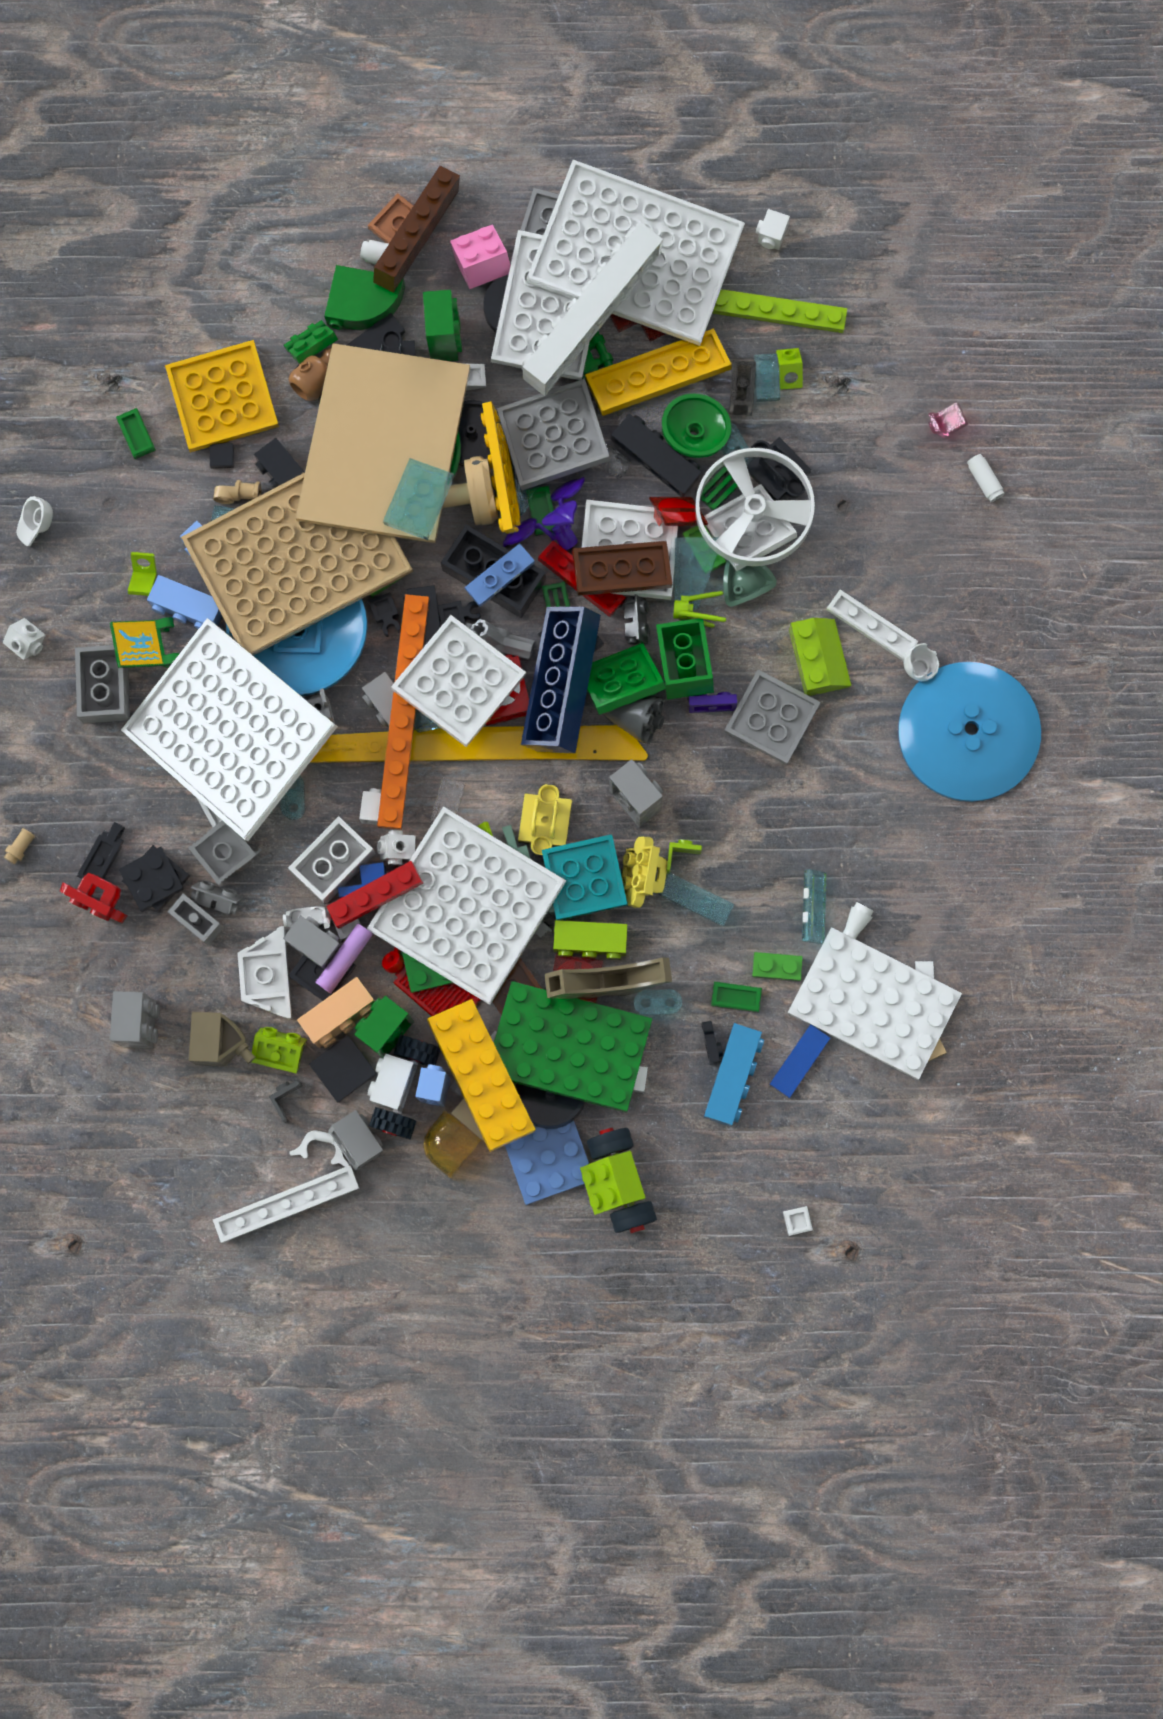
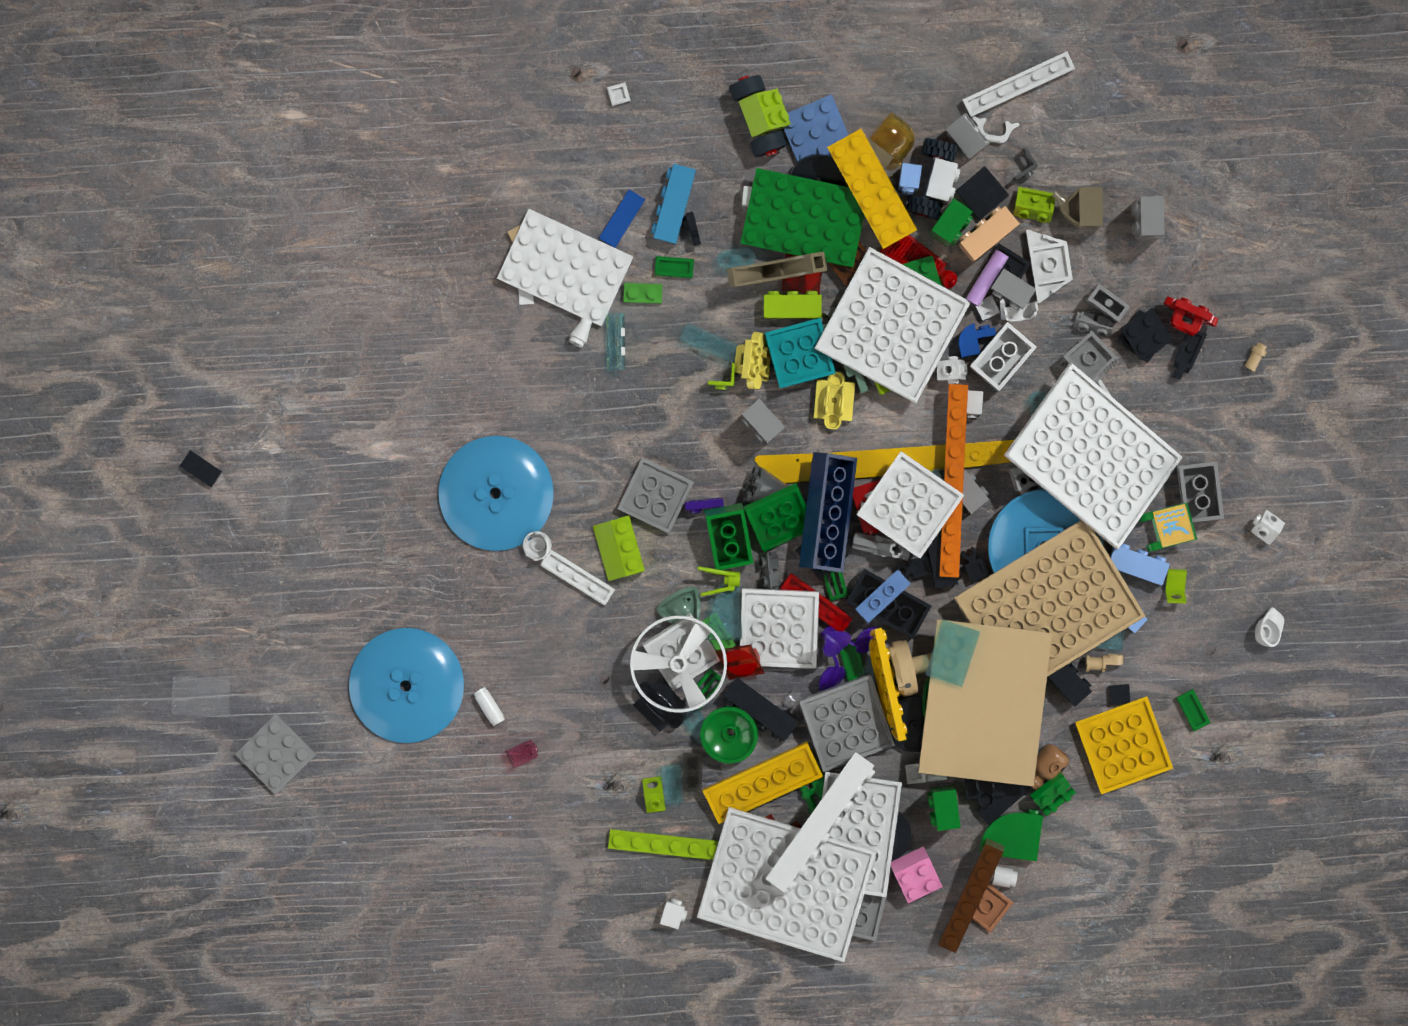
camera: 170 degrees right, 10 degrees up
(374, 894) = (966, 328): red plate -> none
(622, 568) = (783, 608): reddish brown plate -> none
(1077, 539) = (434, 681): none -> dark azure dish

